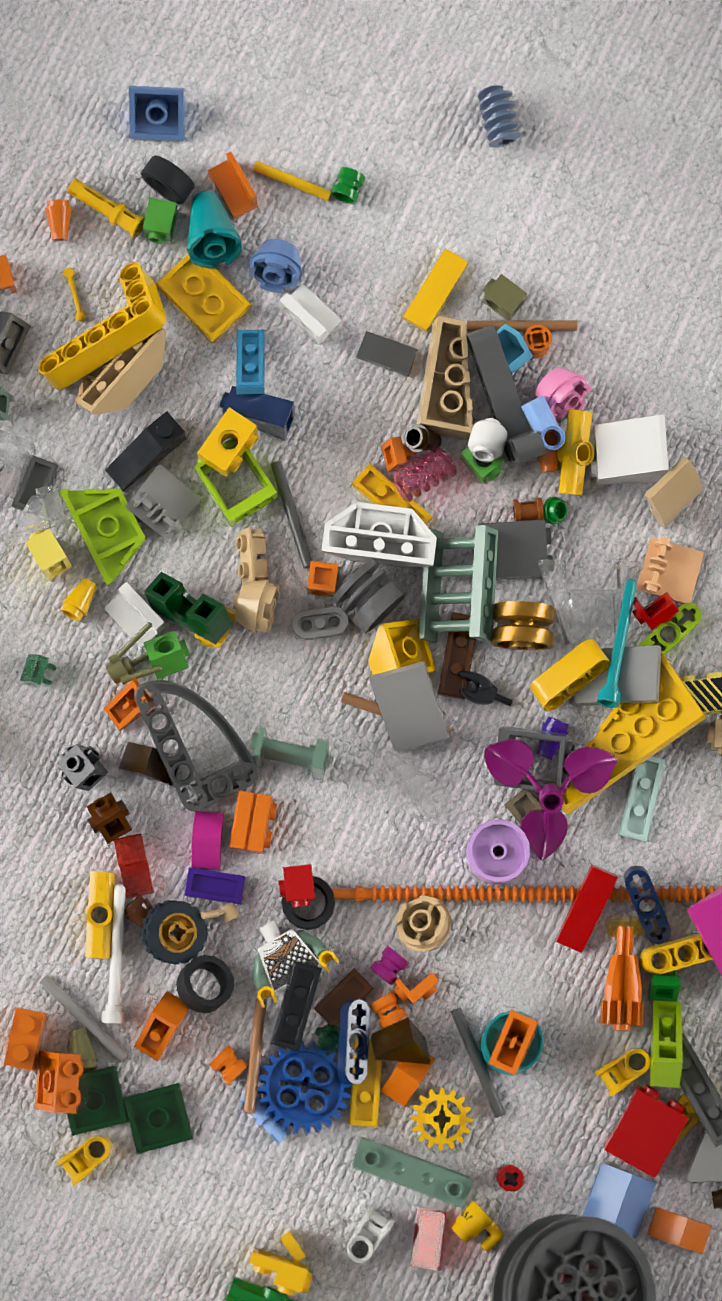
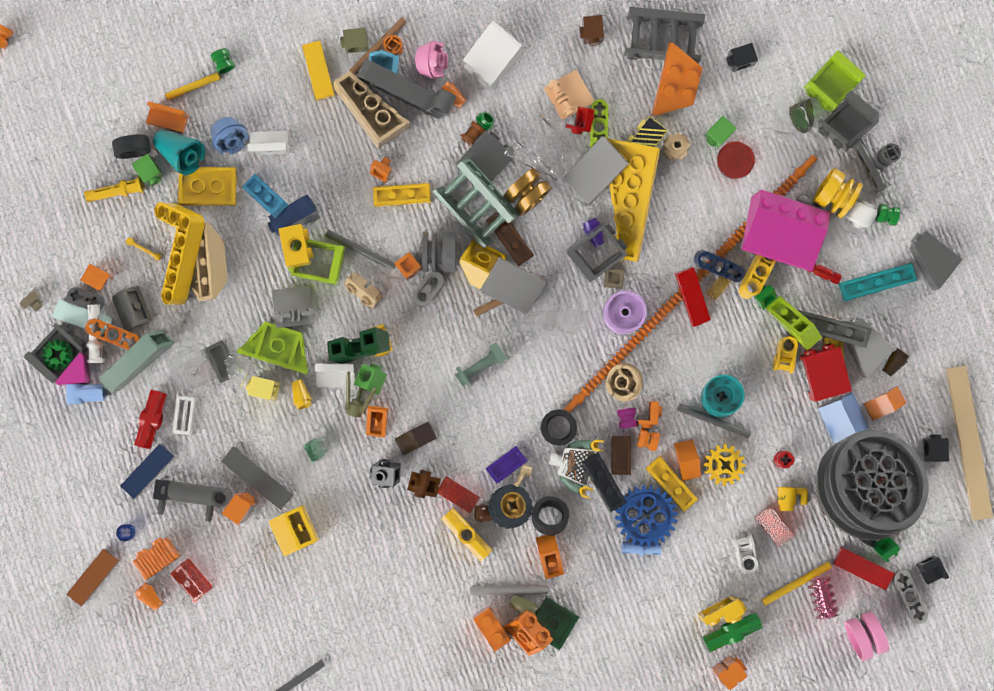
camera: 45 degrees left, 5 degrees up
(58, 217) = (95, 218): orange cone -> none
(82, 1161) = (577, 657): yellow piece -> none
(113, 1010) = (519, 572): white piece -> none
(146, 451) = (258, 290): black slope -> none
(157, 113) = (91, 118): medium blue slope -> none
(158, 1118) = (591, 600): dark green tile -> none
(181, 757) = (452, 424): dark grey beam -> none
(207, 840) = (480, 446): dark pink slope -> none
(228, 1064) = (599, 541): orange wheel -> none
(252, 821) = (493, 417): orange brick -> none
(254, 1057) = (608, 525): medium nougat bar -> none
(256, 605) = (389, 311): tan cone -> none
(293, 1246) = (715, 594): yellow tile -> none
(297, 885) = (547, 424): red brick -> none
(328, 1037) = (634, 481): clear green plate -> none
(344, 1060) = (648, 479): dark blue beam -> none
(380, 533) = (414, 216): white wedge -> none
(387, 353) = (326, 125): dark grey tile -> none
(400, 1043) = (670, 449): dark brown slope -> none
(412, 1172) = (737, 504): sand green fence -> none
(421, 438) = (386, 150): dark brown cone -> none
(423, 472) = (404, 166): clear pink piece -> none
(481, 474) = (418, 127): bright green brick -> none
(485, 690) = (540, 242): black hand -> none
(487, 440) = (419, 118): white head -> none
(513, 1042) = (725, 395): orange slope -> none
(542, 420) = (436, 81): light blue piece -> none
(569, 675) = (573, 193): yellow beam -> none
(575, 452) = (467, 82): yellow piece -> none
(588, 769) = (629, 230): magenta plant -> none
(609, 694) = (602, 183): teal piece -> none
(623, 986) = (747, 316): orange piece -> none
(641, 799) = (666, 219): light aqua tile -> none
(674, 491) = (533, 54): tan slope -> none

